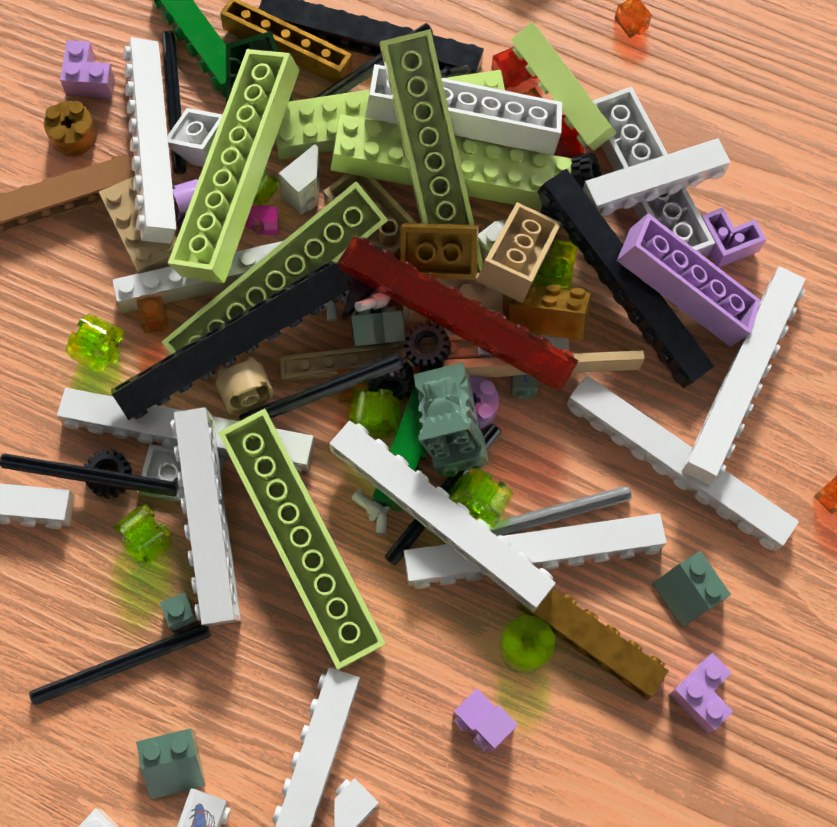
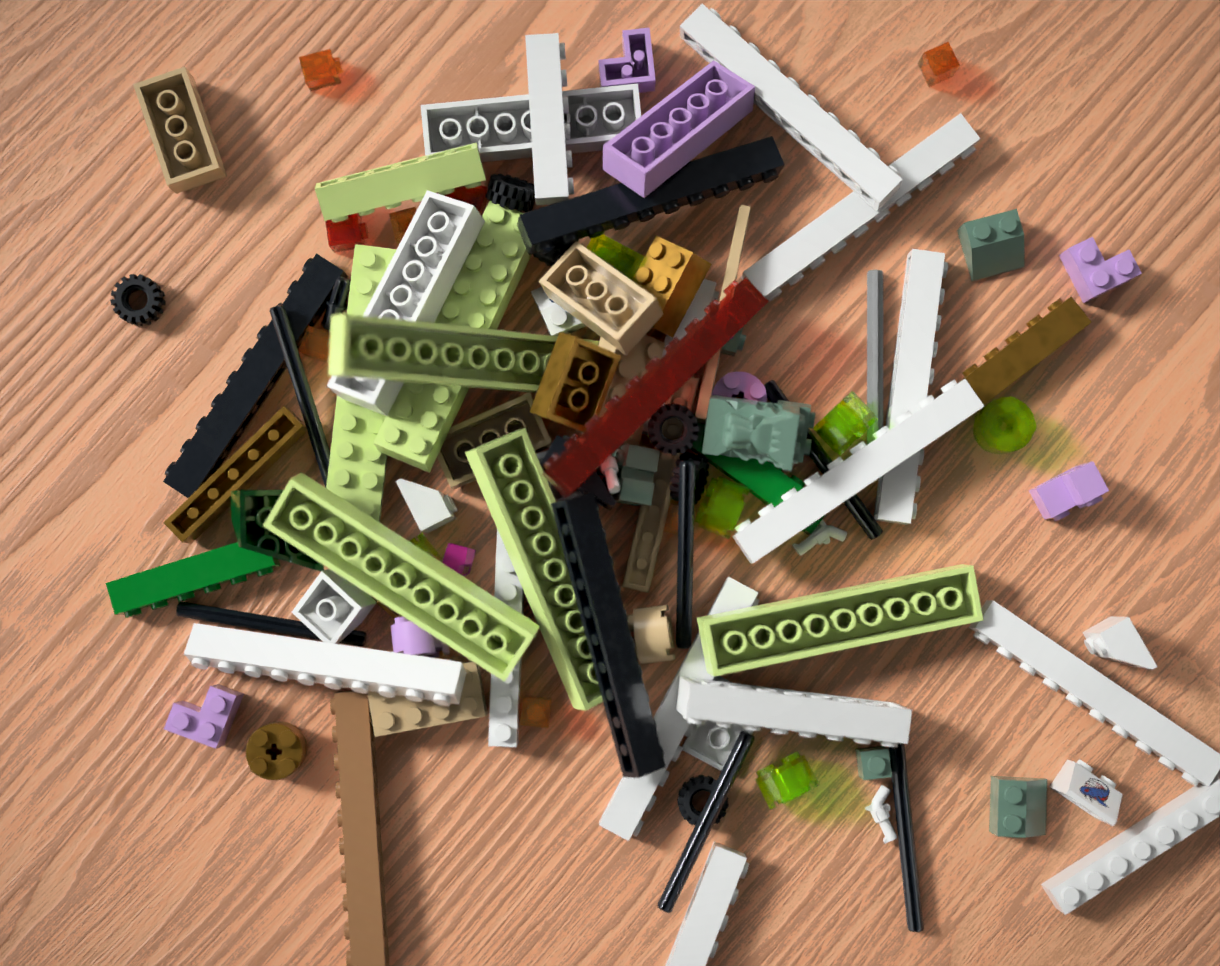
camera: 70 degrees left, 15 degrees up
(94, 343) = (556, 781): clear neon green brick -> none
(134, 635) = (880, 813): none -> white piece

